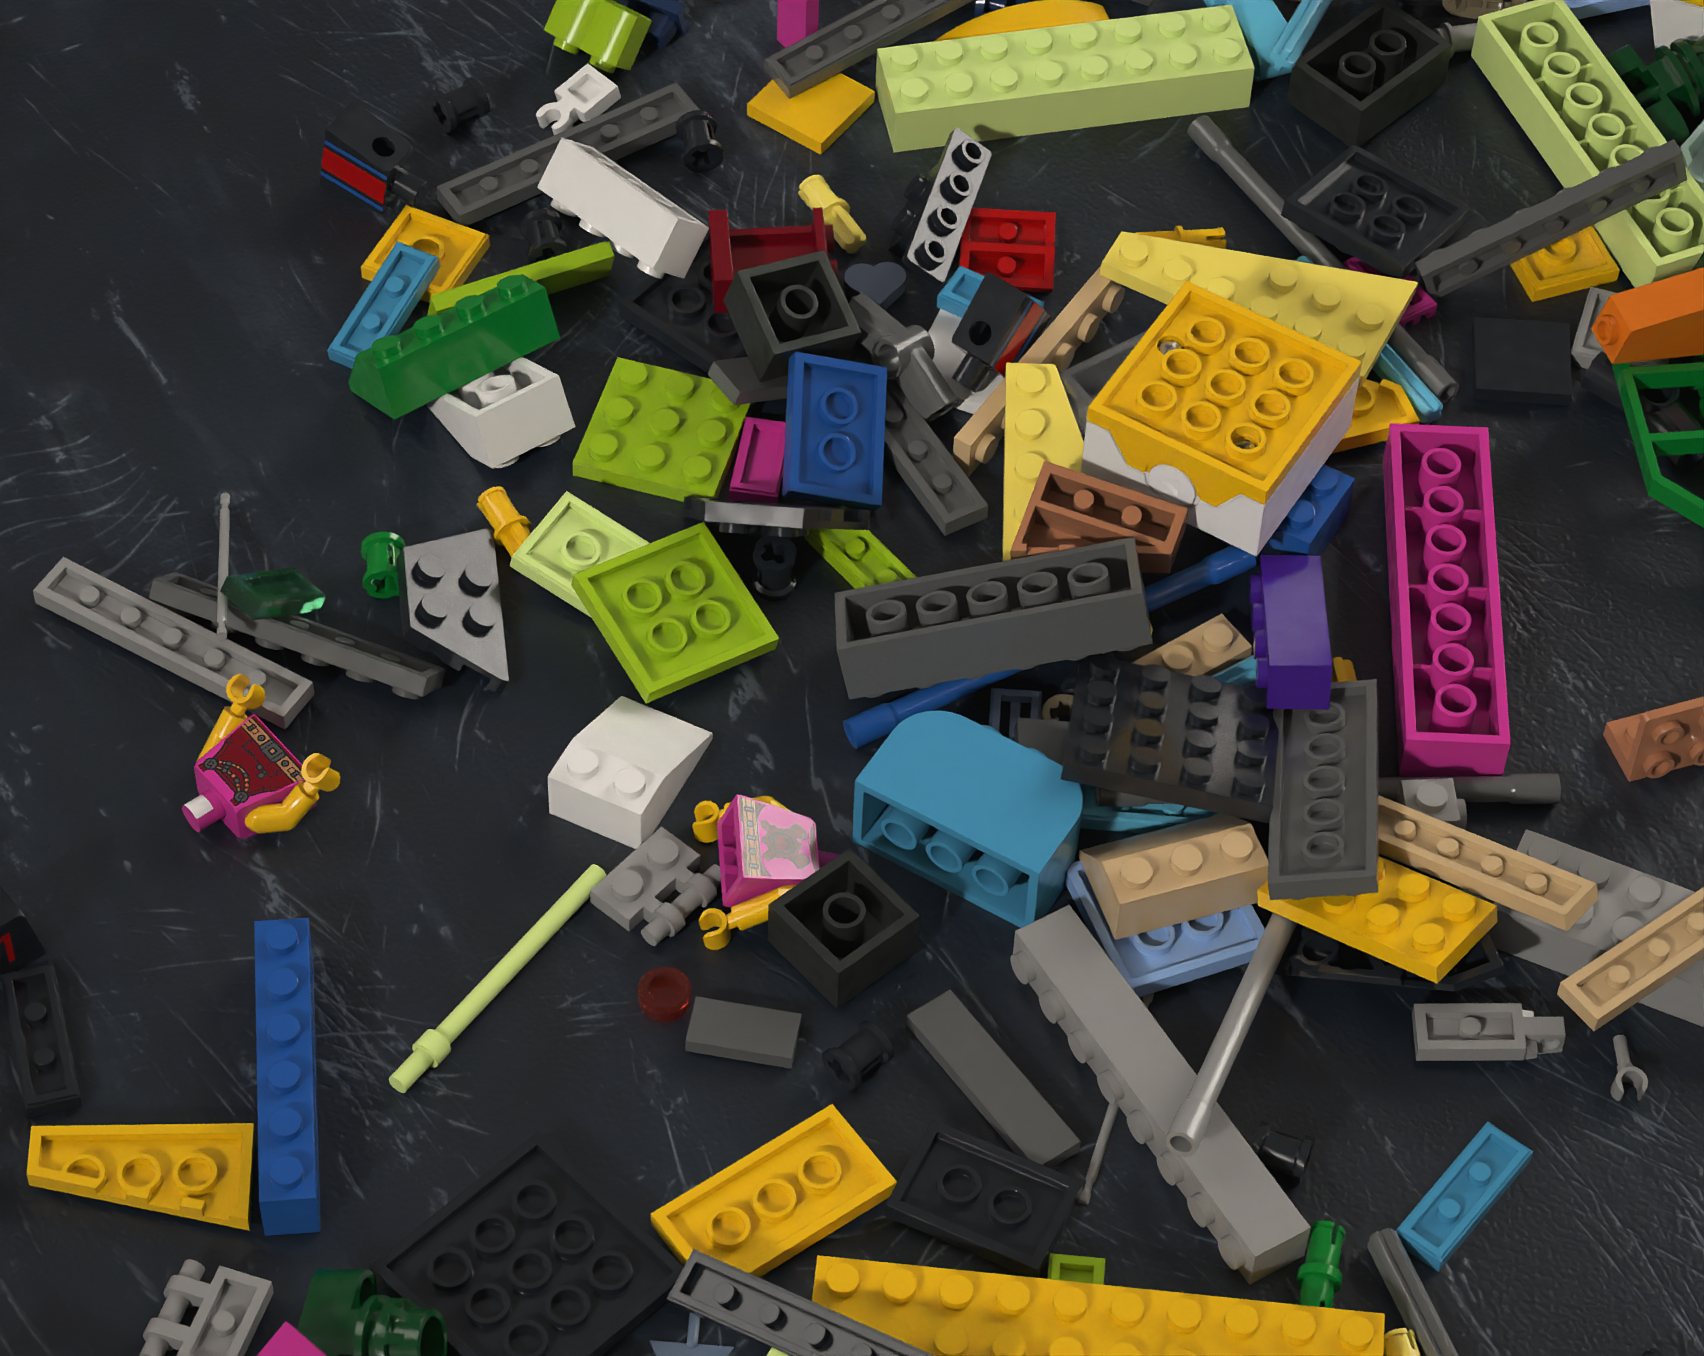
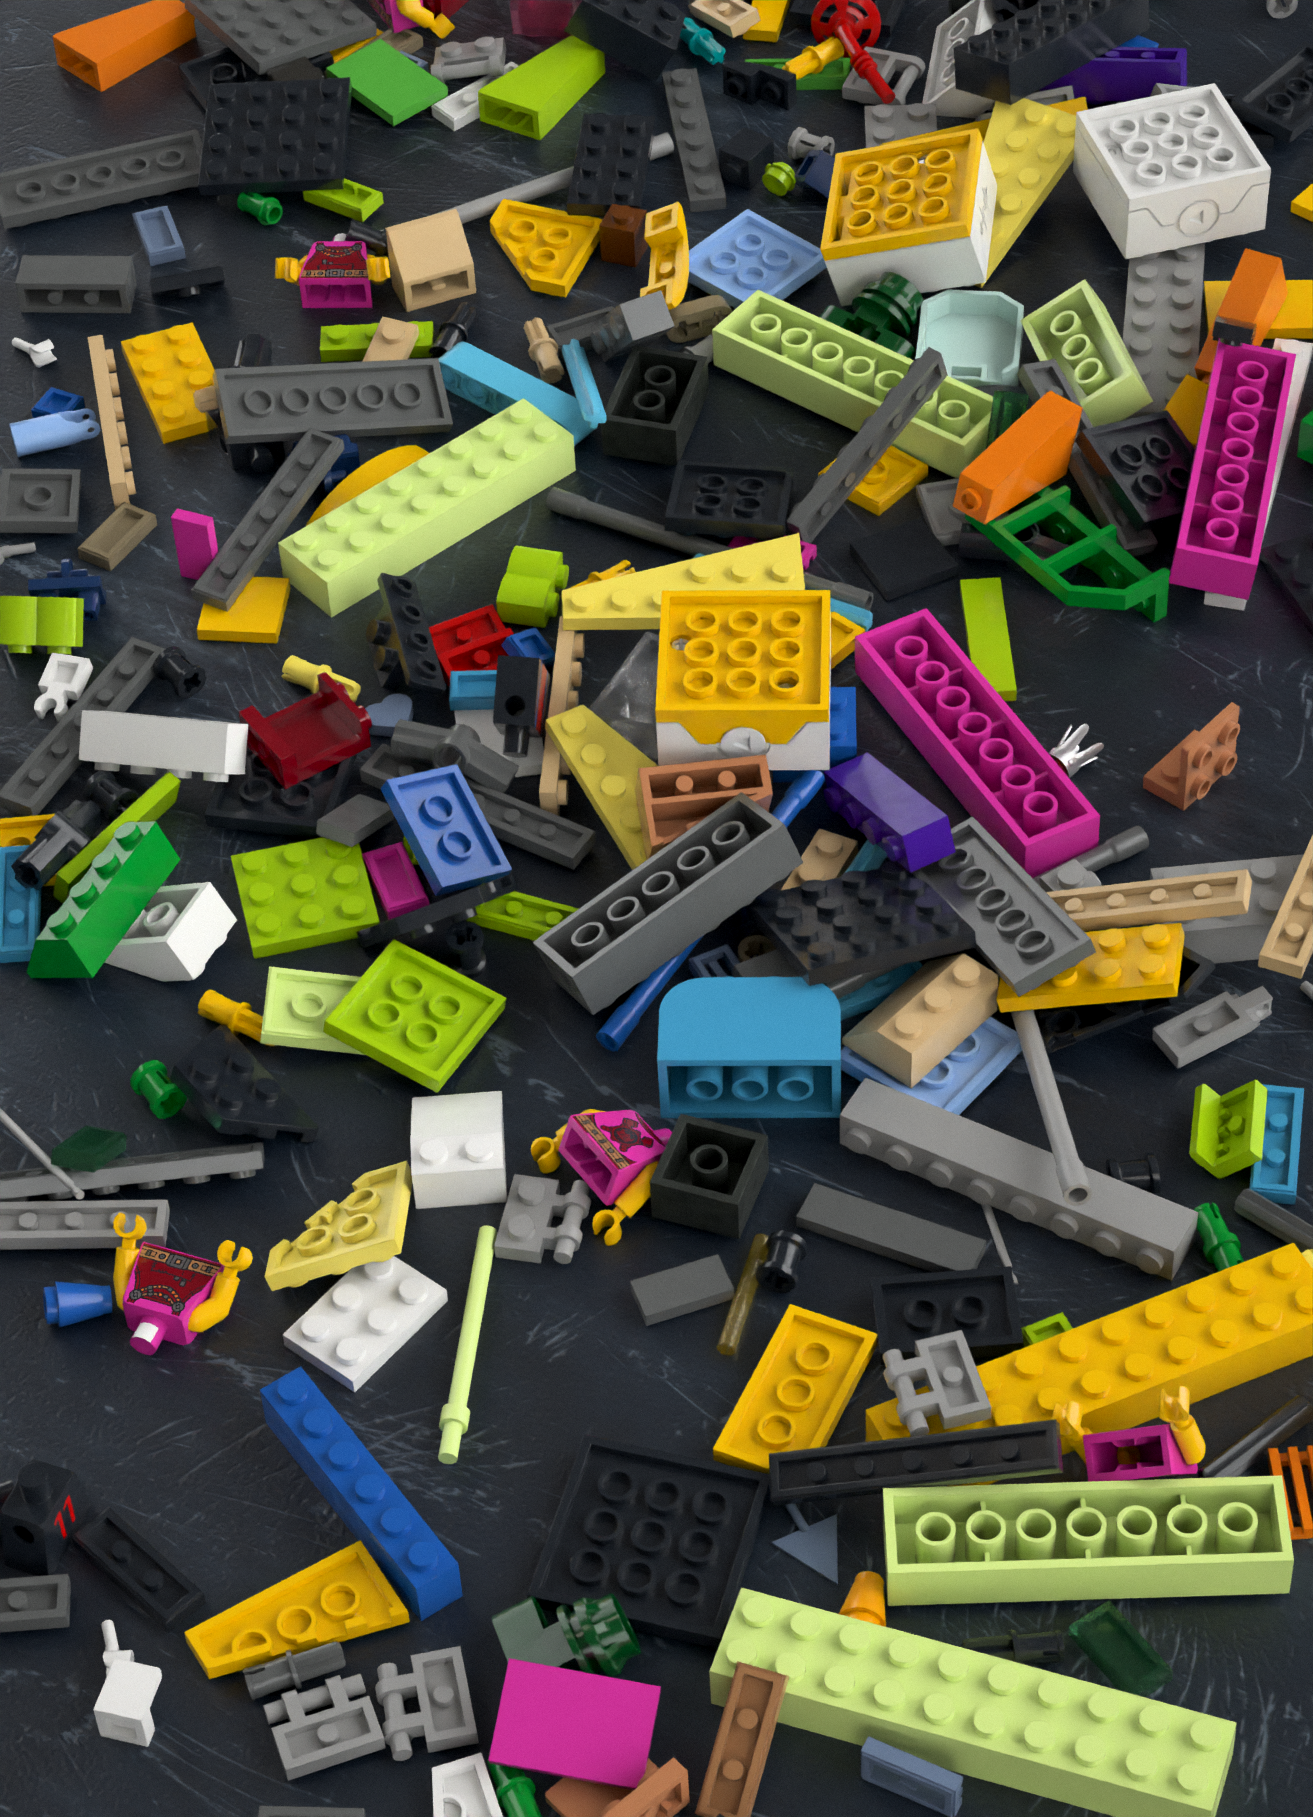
camera: 25 degrees left, 5 degrees down
(95, 1303) = (327, 1736): none -> light grey plate
(107, 1218) = (293, 1669): none -> dark grey axle
(160, 742) = (75, 1302): none -> blue cone
(421, 900) = (365, 1320): none -> white plate
(455, 263) = (57, 843): none -> black piece
(457, 804) = (347, 1234): none -> light yellow plate
(664, 994) = (602, 1293): clear red tile -> none
(790, 310) = (356, 756): pearl dark grey brick -> none
(796, 1073) = (743, 1296): none -> clear yellow bar
(912, 1274) = (950, 1377): none -> light grey plate
(1056, 279) = (529, 644): none -> blue tile
(1109, 204) = (531, 586): none -> lime brick
(1415, 1152) = (1228, 1128): none -> lime bracket
(1541, 661) = (1066, 751): none -> flat silver piece
(1548, 492) = (988, 633): none -> lime tile

